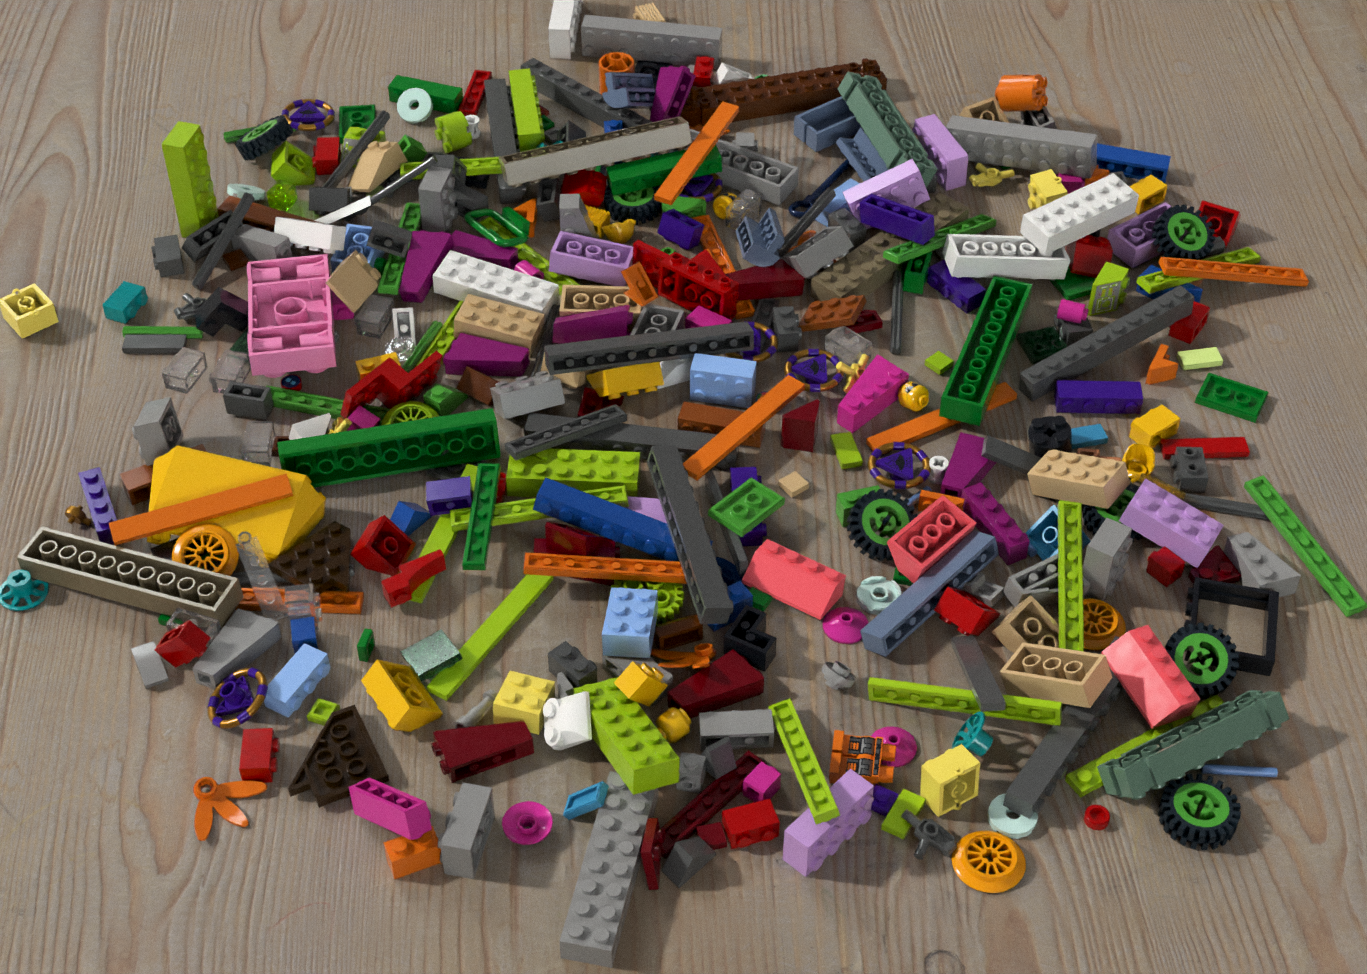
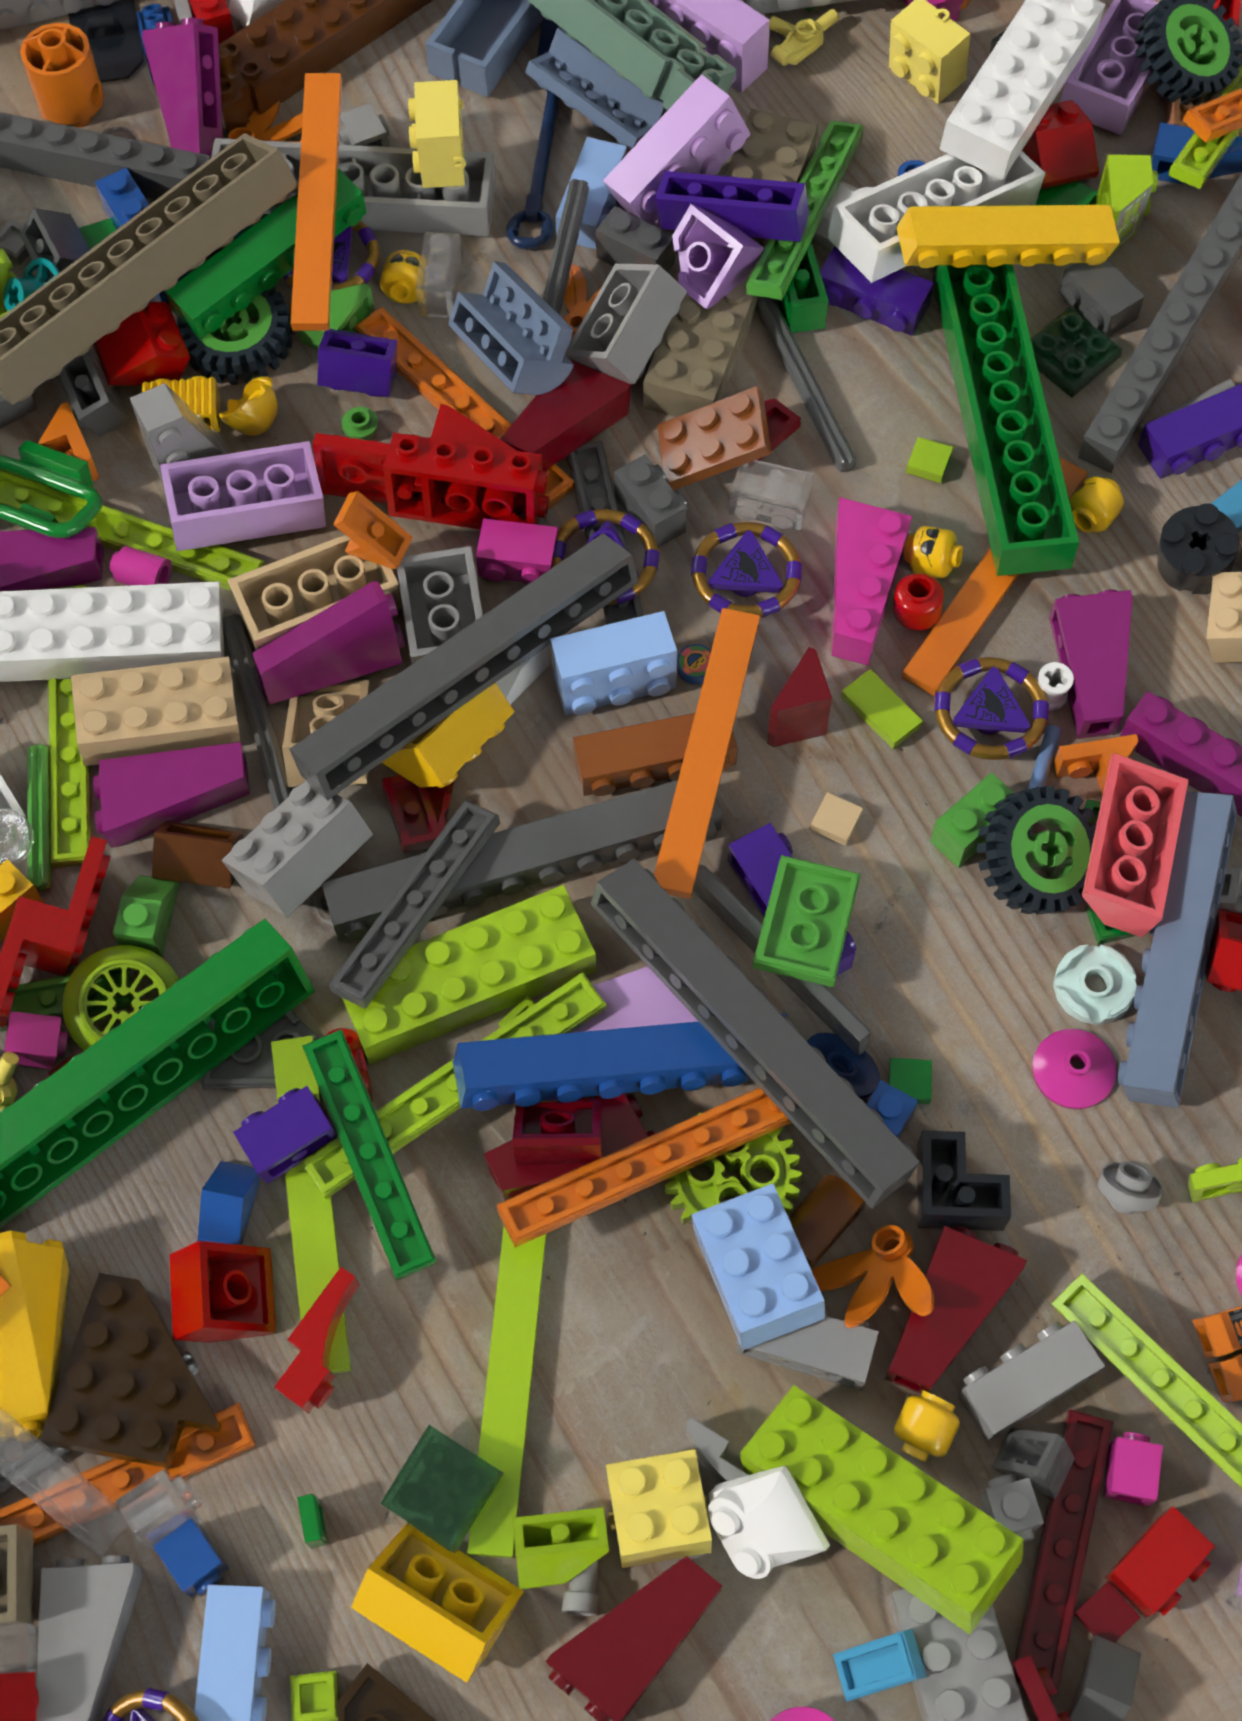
camera: 25 degrees left, 20 degrees up
(465, 693) = (558, 1545): none -> lime slope
(573, 665) = (698, 1392): dark grey brick -> none
(629, 90) = (112, 103): sand blue brick -> none
(641, 683) = (855, 1395): yellow brick -> none
(772, 147) = (437, 133): none -> light yellow brick
(794, 579) = (955, 1026): coral slope -> none
(853, 372) = (815, 549): light yellow piece -> none
(875, 236) = (712, 255): none -> medium lavender slope
(891, 411) = (918, 601): none -> red head
(1008, 455) = (1159, 612): dark grey tile -> none
(1011, 407) = (1096, 504): none -> yellow head
(1028, 273) = (1007, 235): none -> yellow brick
(1072, 311) = (1102, 276): dark pink brick -> none

